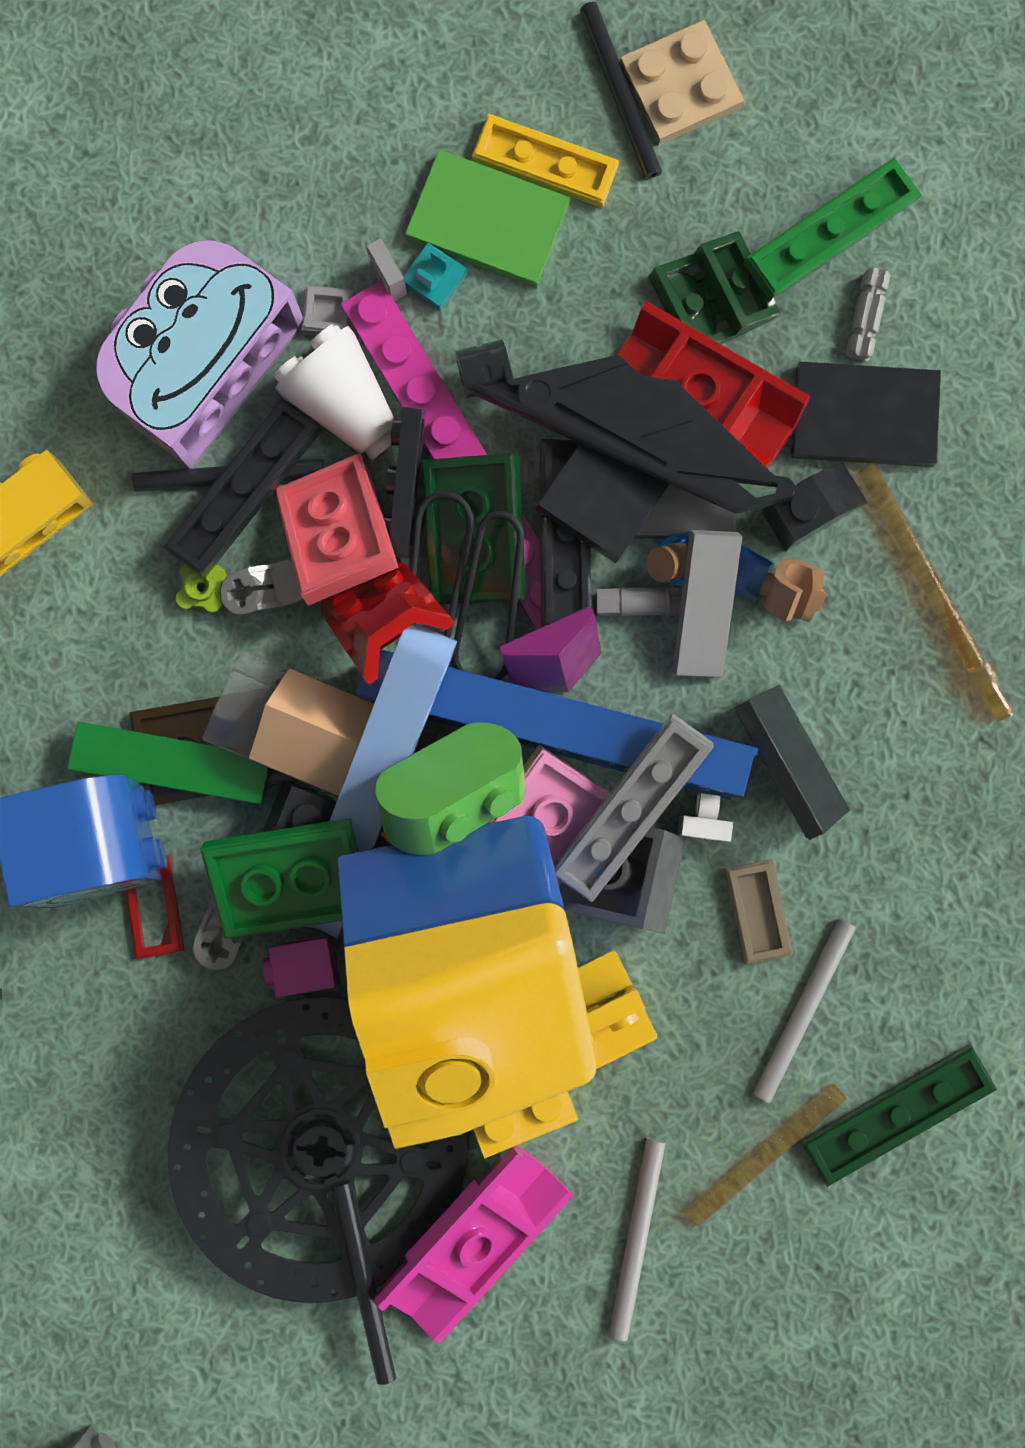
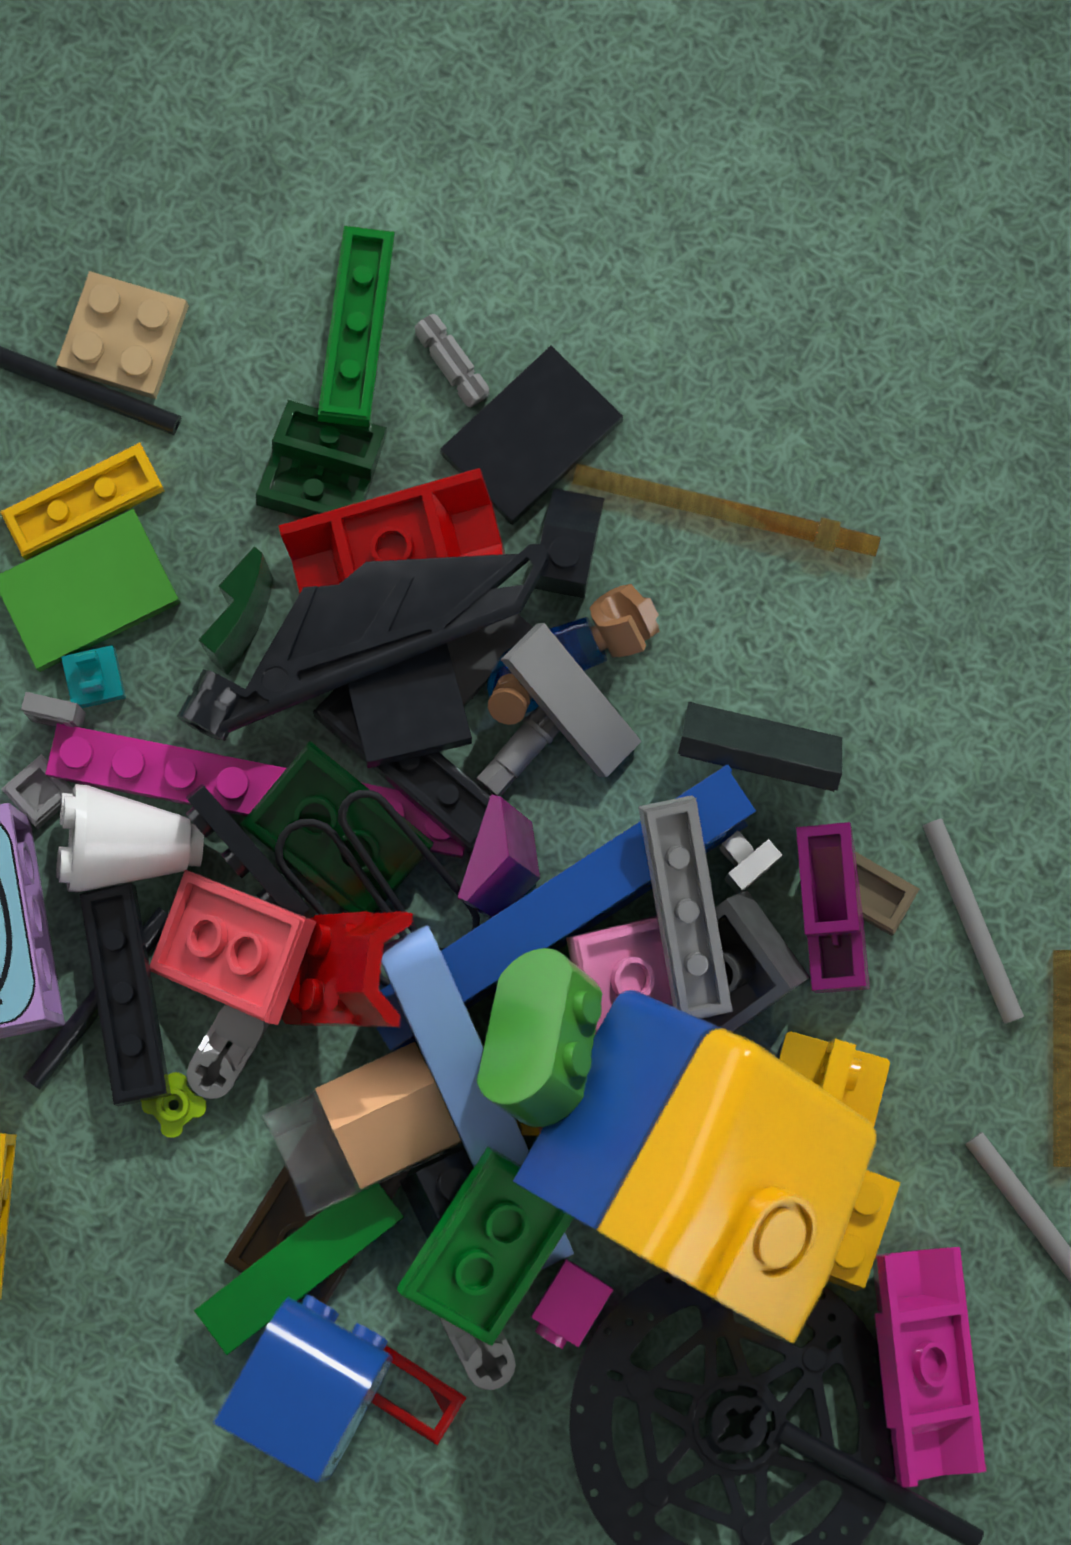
camera: 50 degrees left, 5 degrees down
(552, 335) = (247, 594): none -> dark green slope
(725, 907) = (832, 908): none -> magenta slope

